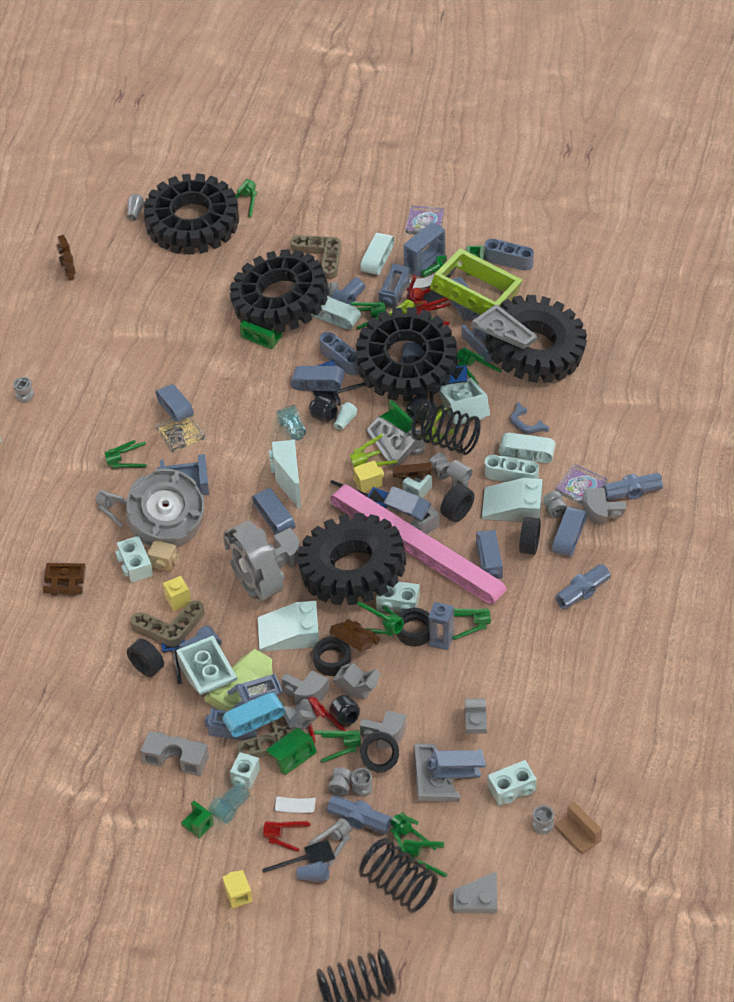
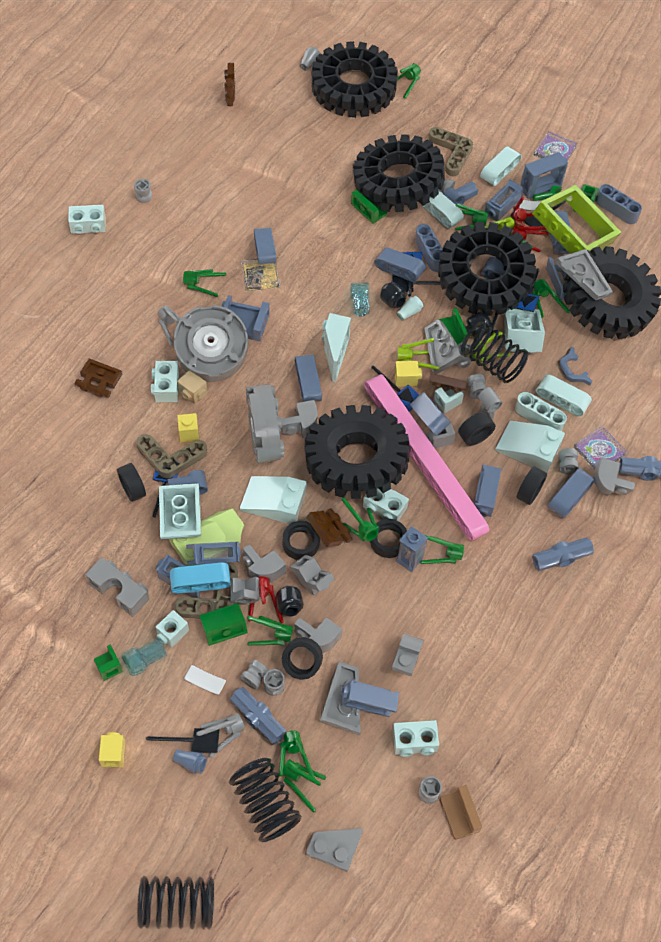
camera: 15 degrees right, 10 degrees up
(275, 829) = (174, 700): red plant -> none

